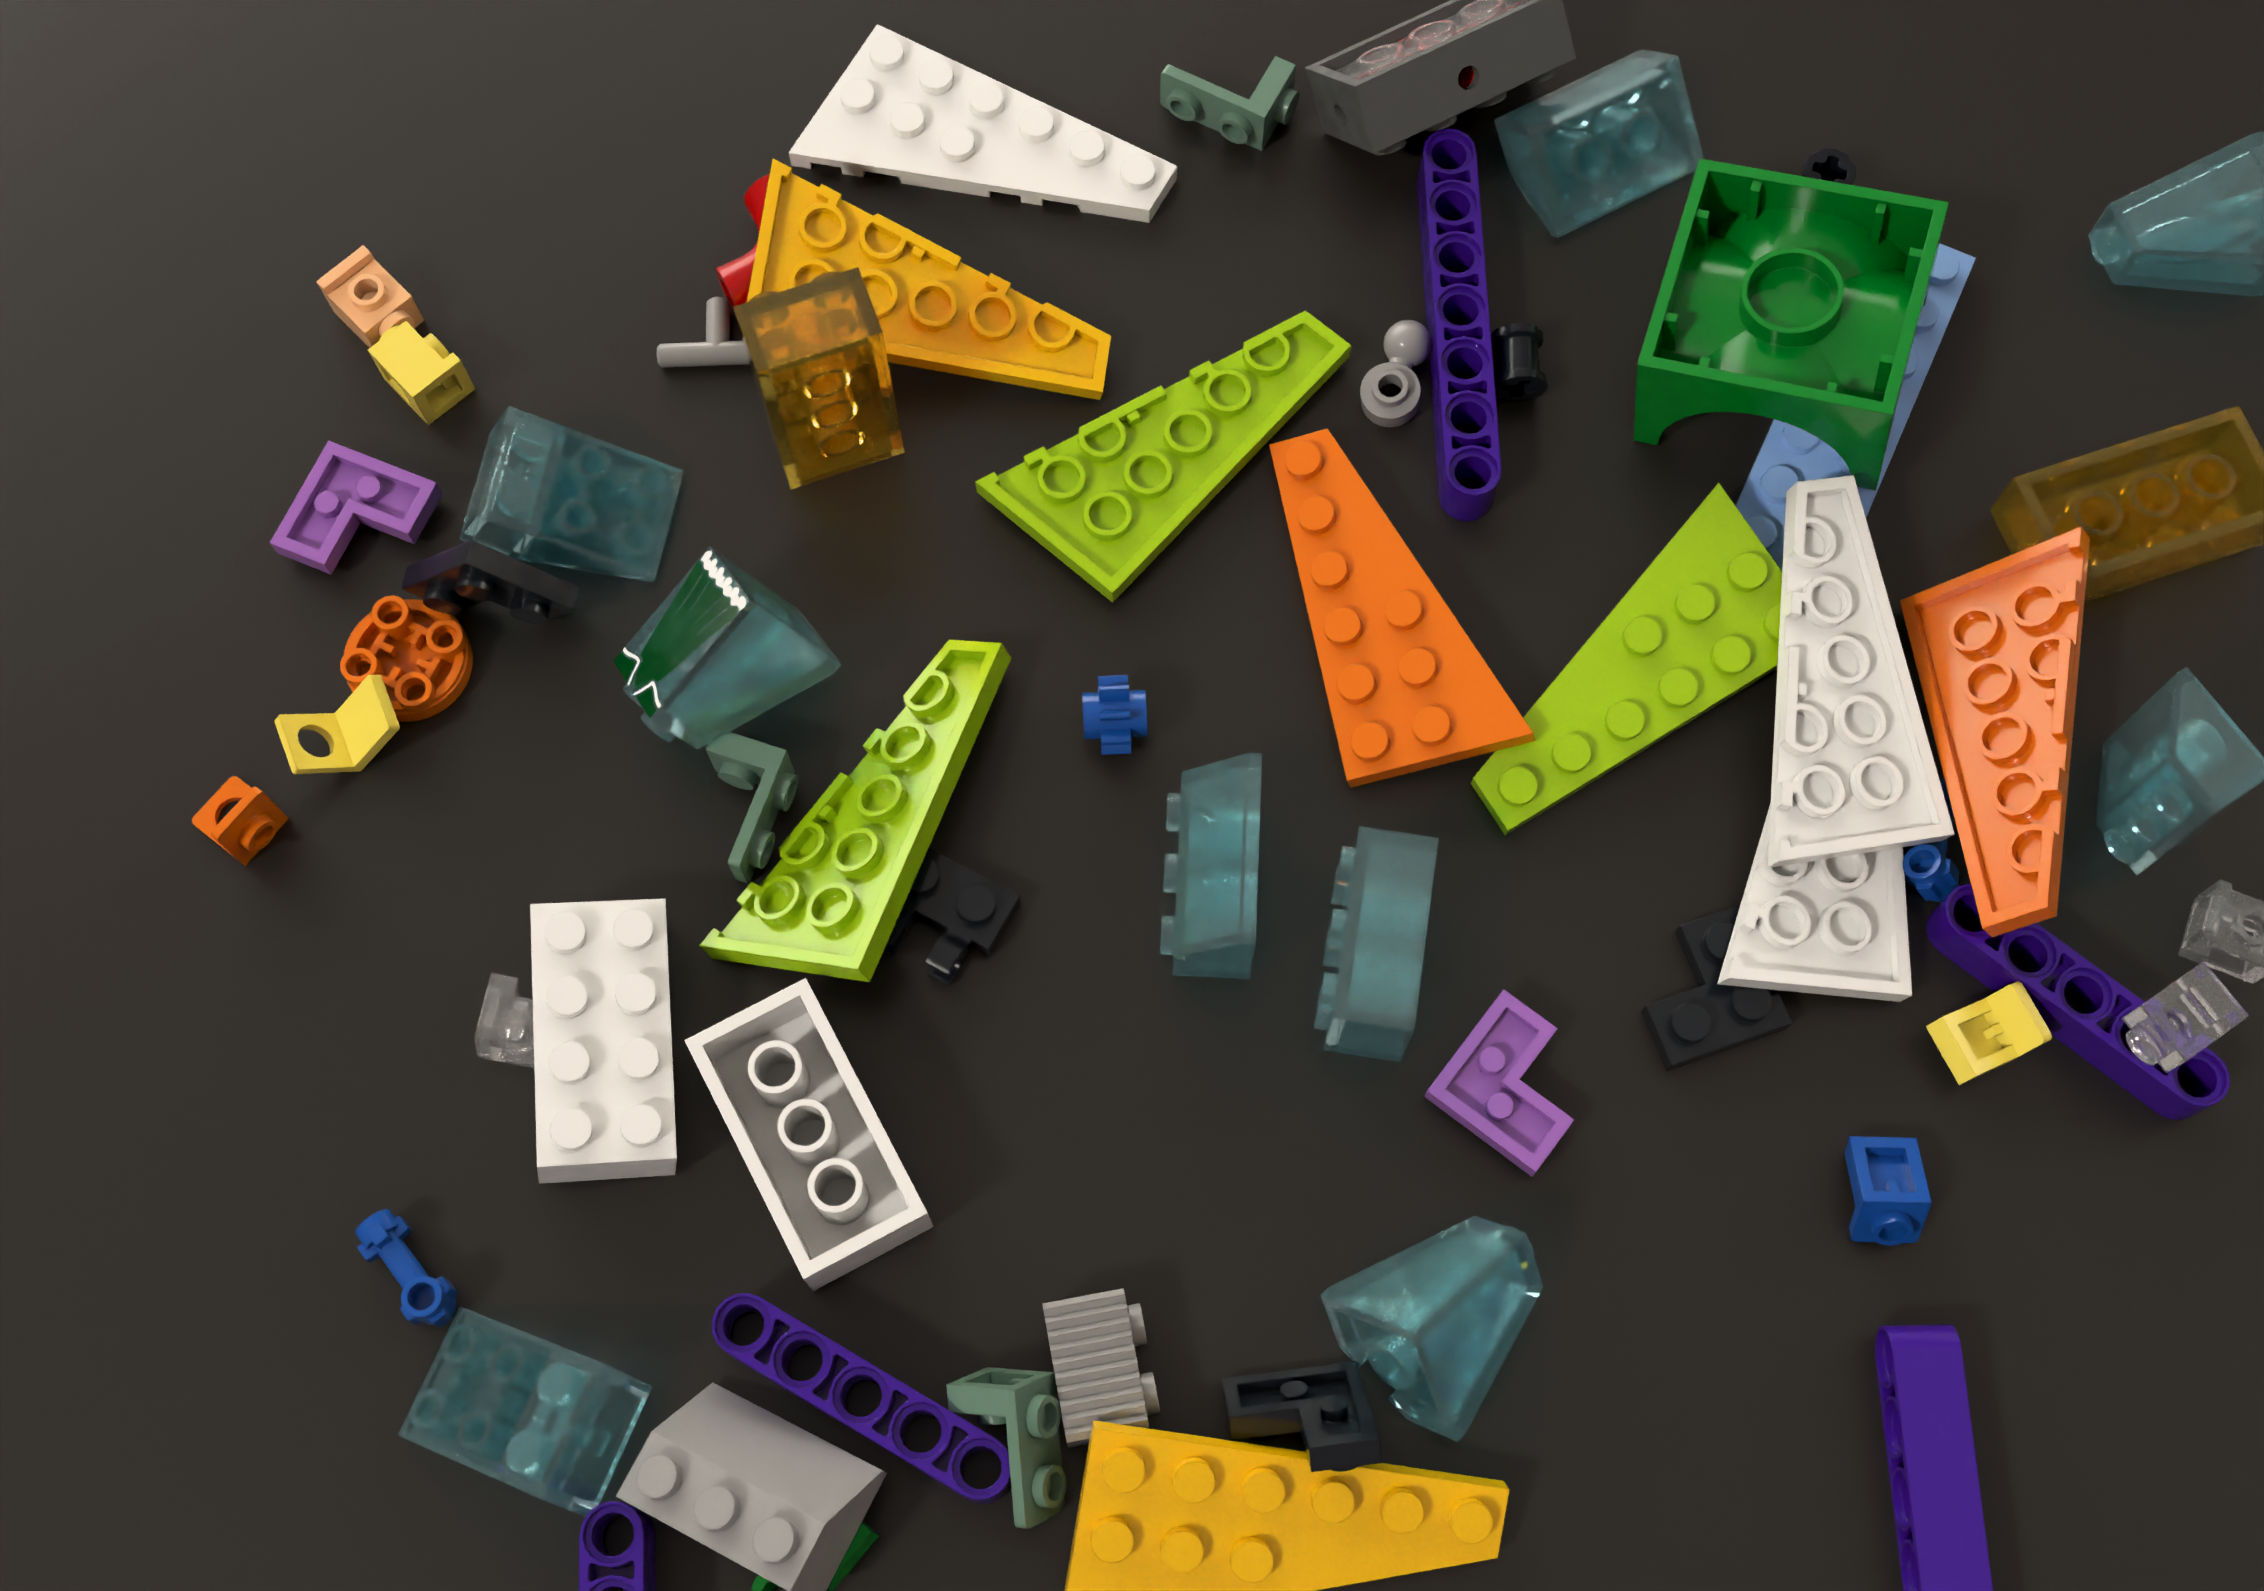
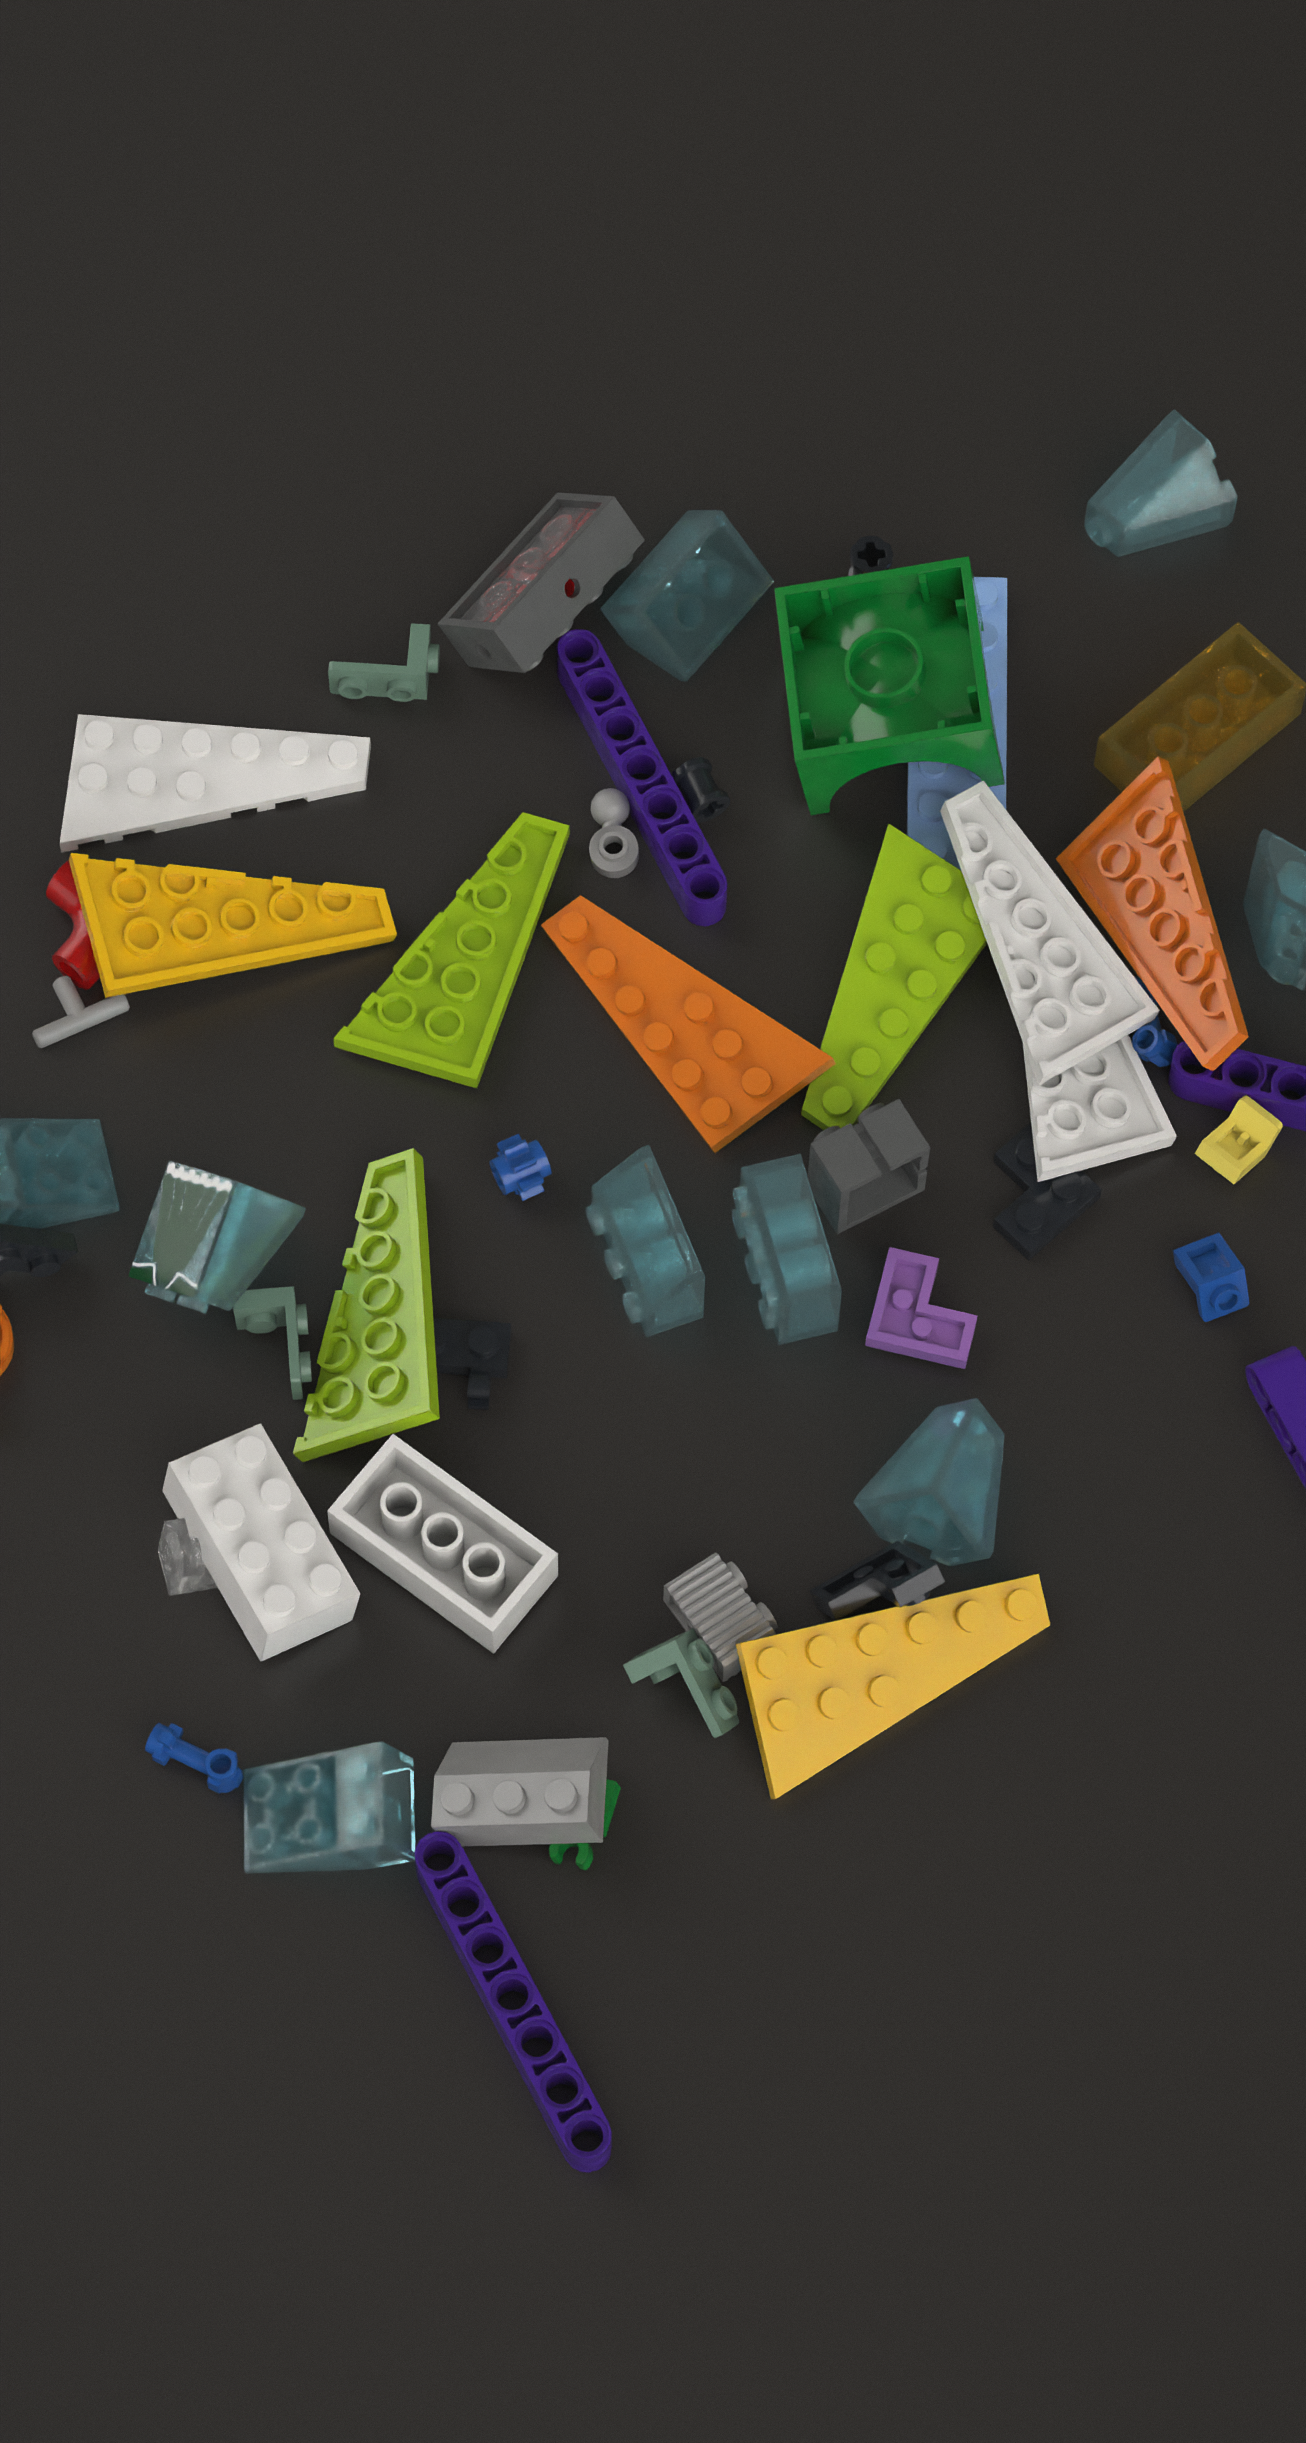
camera: 25 degrees left, 5 degrees down
(822, 376) = (197, 1004): clear yellow brick -> none
(843, 1370) = (546, 1686): dark purple beam -> none
(1519, 880) = (867, 1165): none -> dark grey piece

